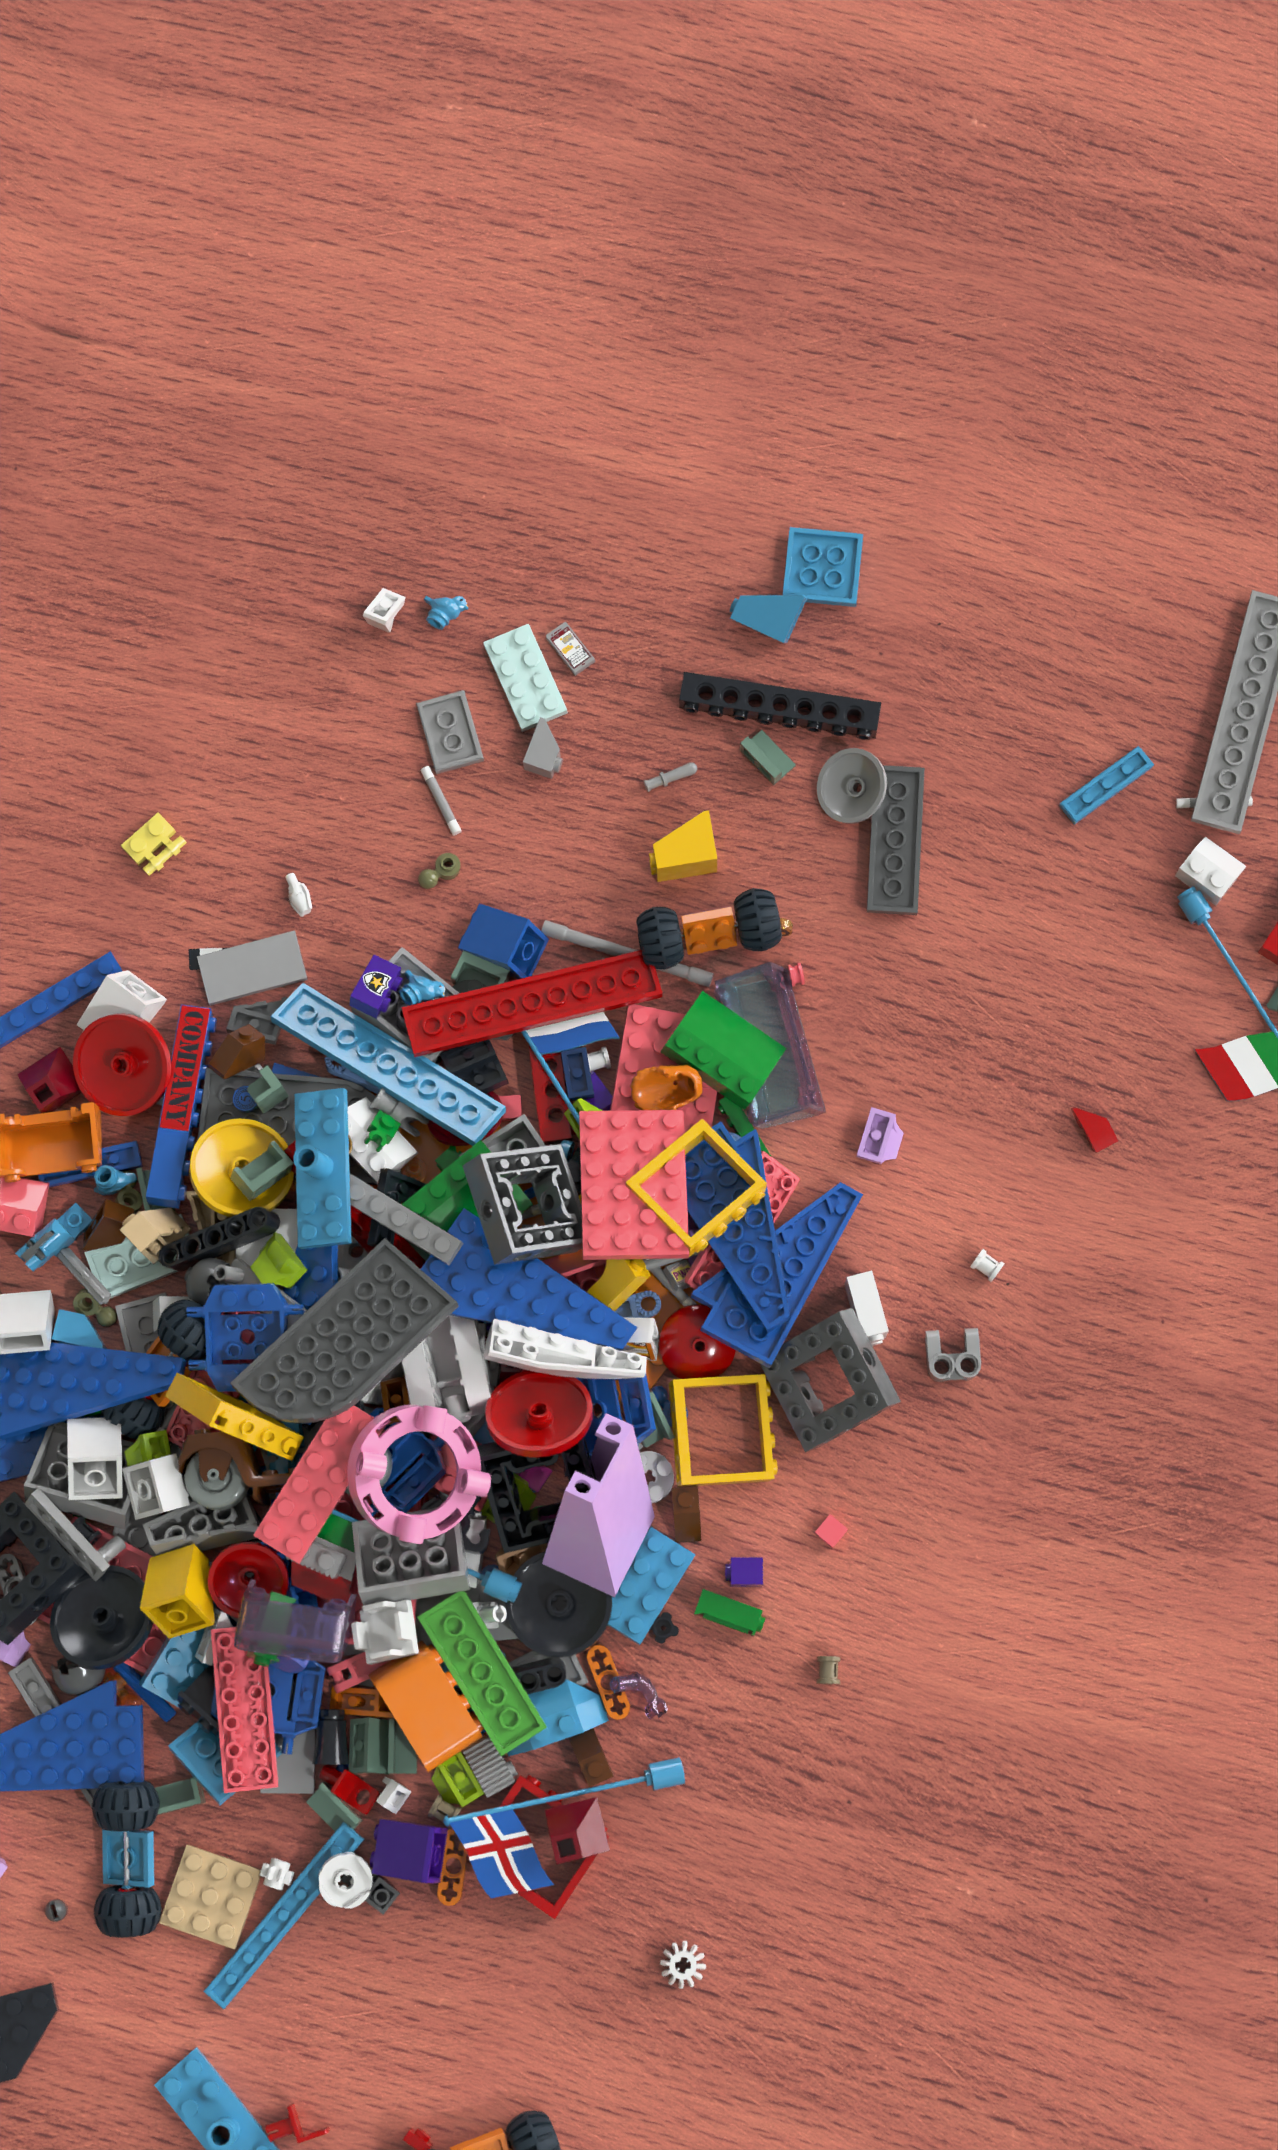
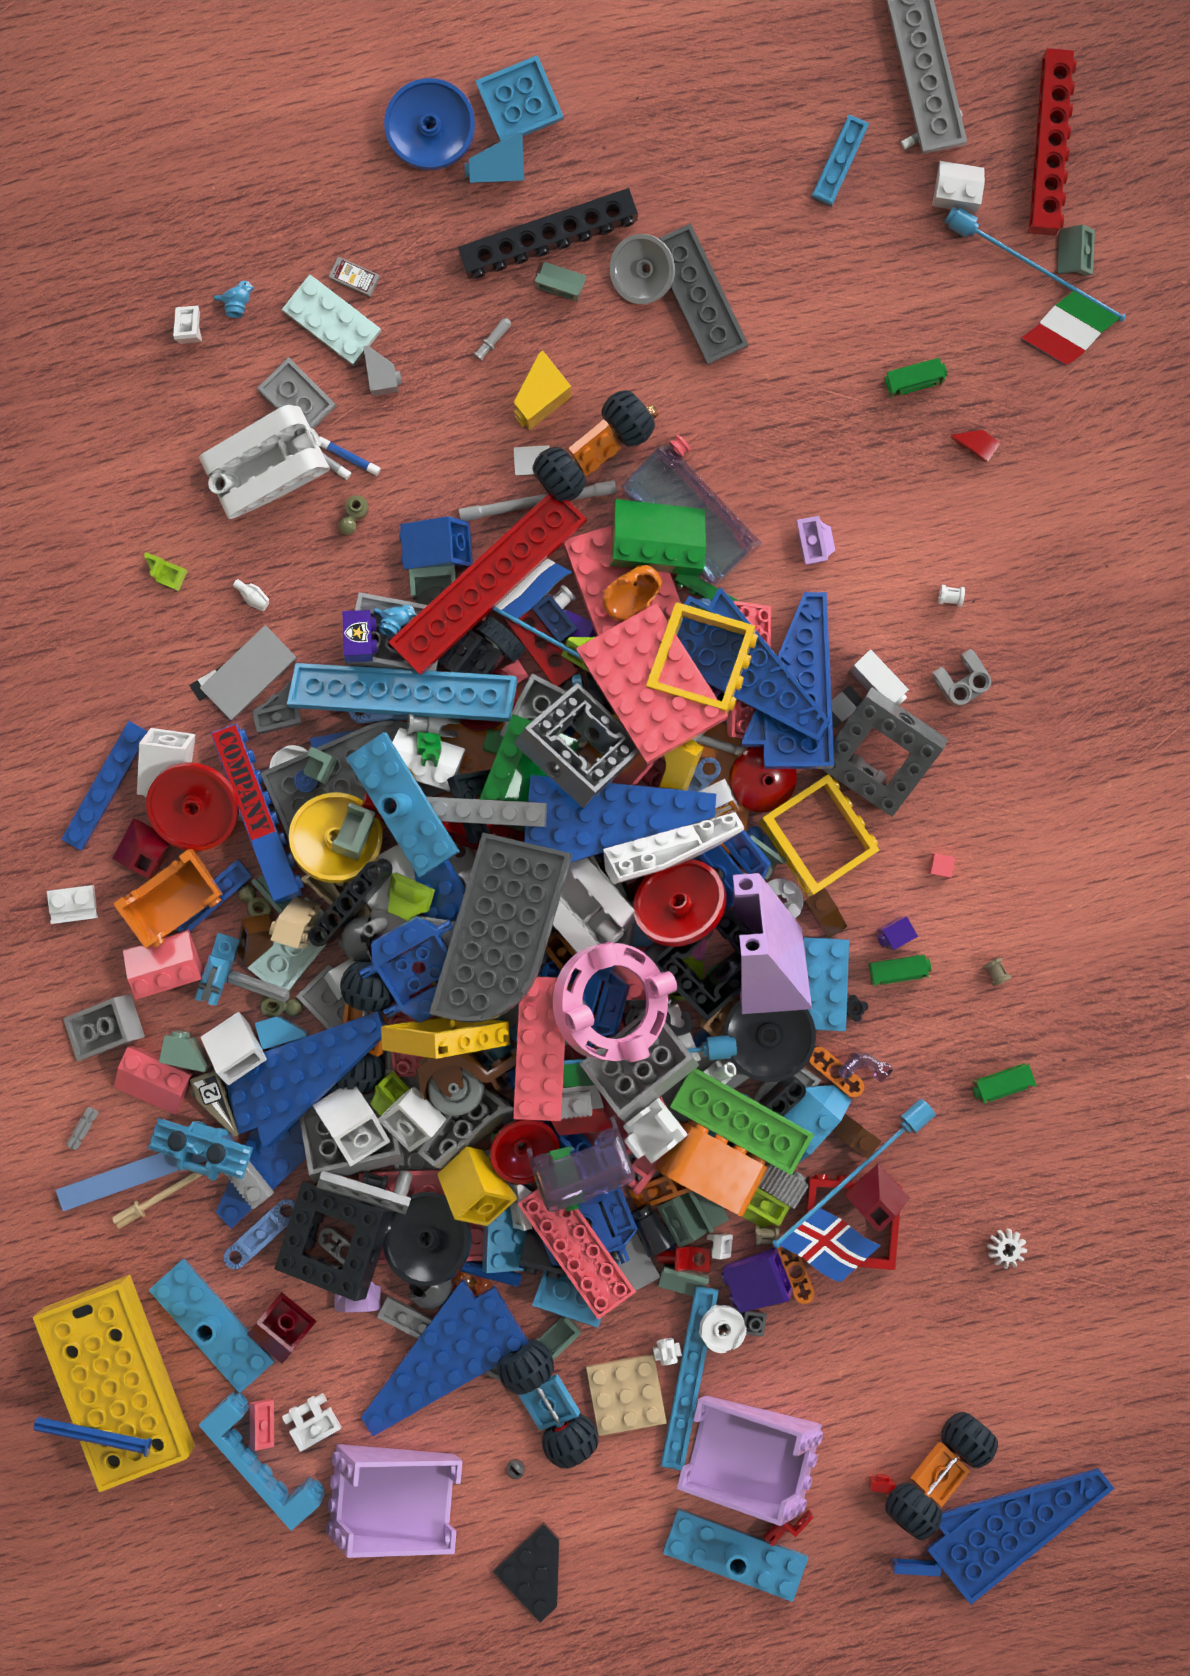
camera: 30 degrees left, 10 degrees up
(111, 1180) = (236, 901): dark azure animal -> none
(149, 839) = (106, 615): light yellow plate -> none
(228, 829) = (165, 572): none -> lime slope
(239, 1052) = (278, 746): reddish brown slope -> none
(300, 2036) = (751, 1459): none -> lavender windscreen
(383, 775) = (264, 461): none -> white panel
(468, 814) = (341, 452): none -> blue bar
(514, 1066) = (501, 639): none -> black wheel
(636, 905) = (525, 457): none -> white sticker
(676, 1274) = (719, 734): tile -> none
(726, 524) = (423, 105): none -> blue dish
(772, 1789) = (1003, 1083): none -> green window
(814, 1314) = (844, 705): none -> sticker
(1067, 1031) = (915, 377): none -> green window

